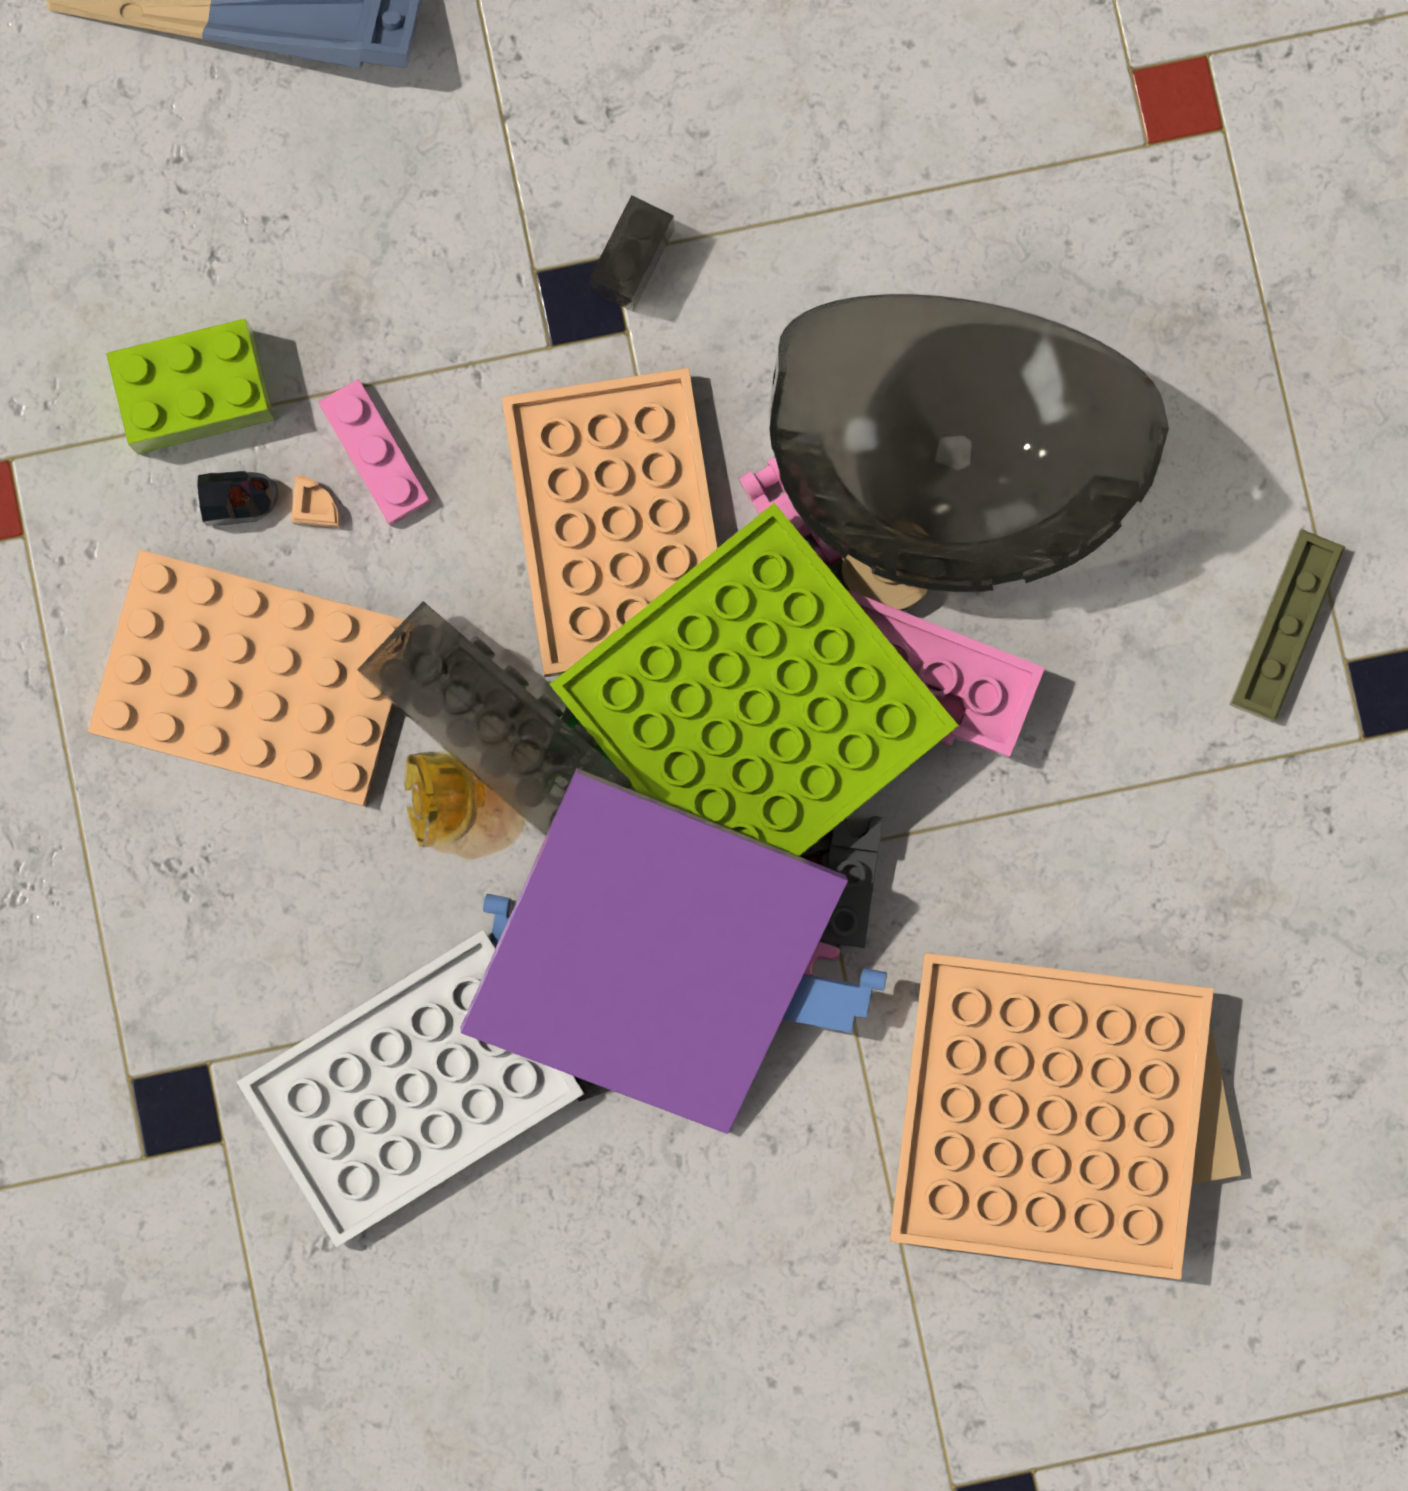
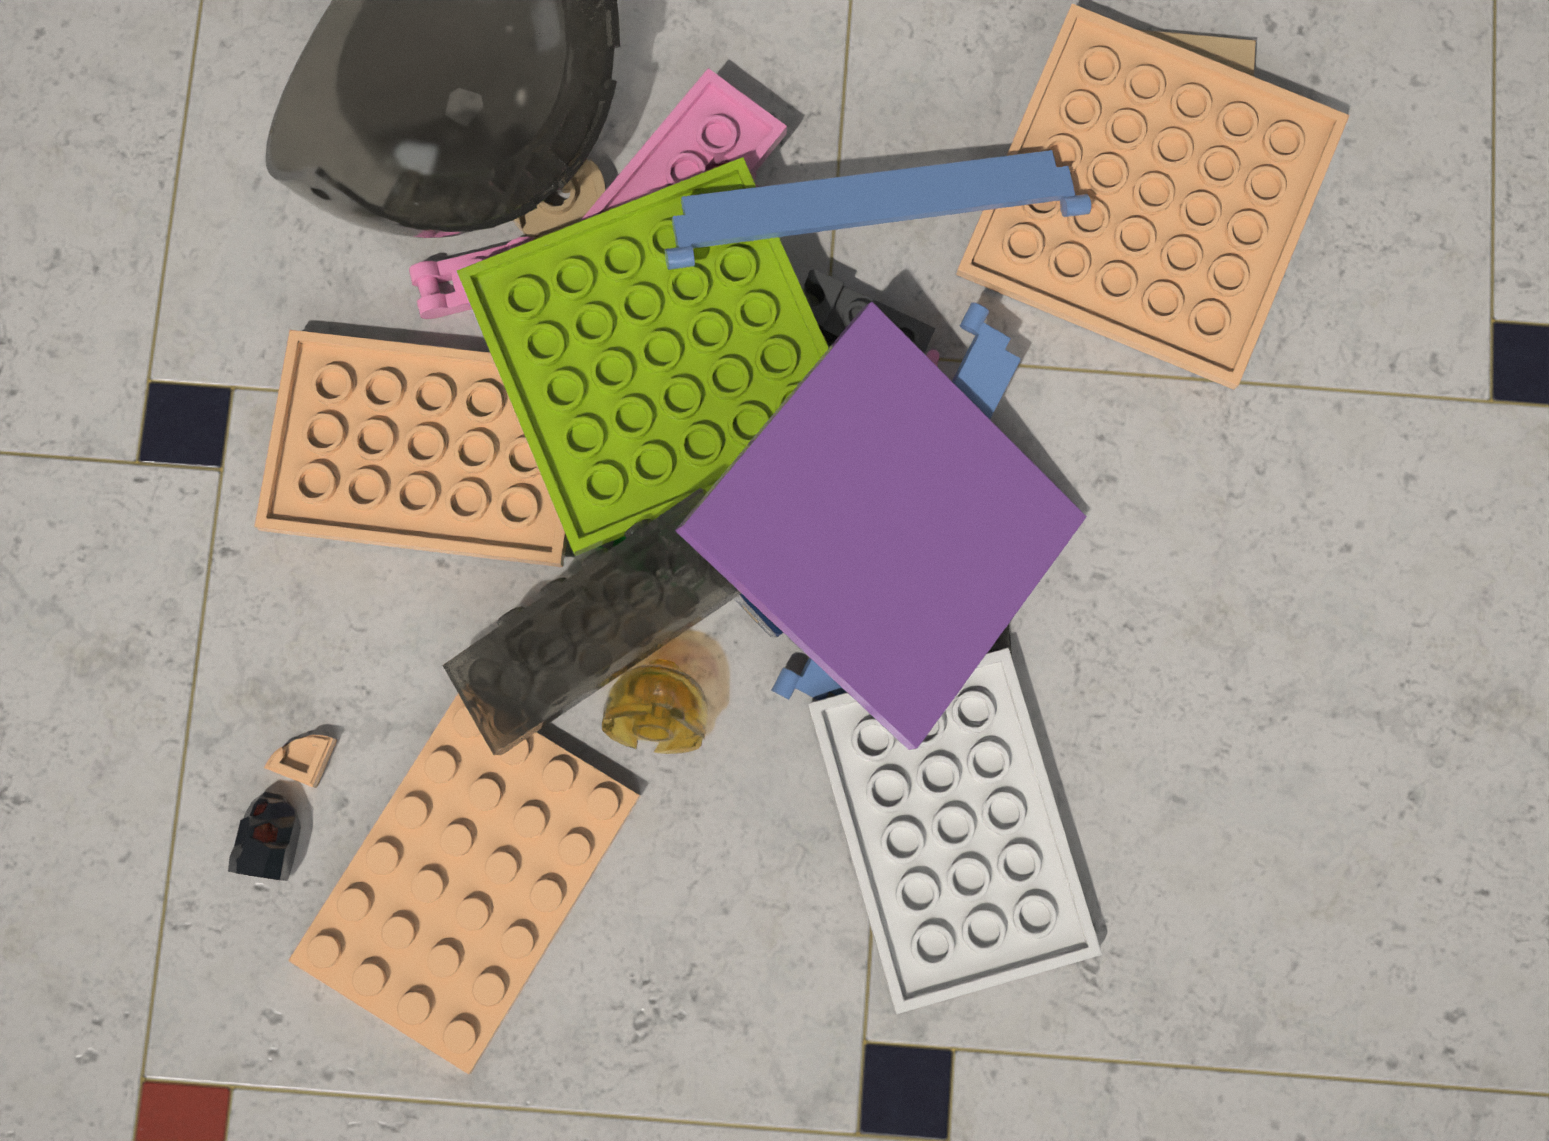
camera: 80 degrees left, 5 degrees down
(190, 386) = (128, 853): lime brick -> none
(374, 452) = (268, 679): bright pink plate -> none
(632, 253) = (150, 351): clear smoke brick -> none
(955, 856) = (870, 200): none -> medium blue piece

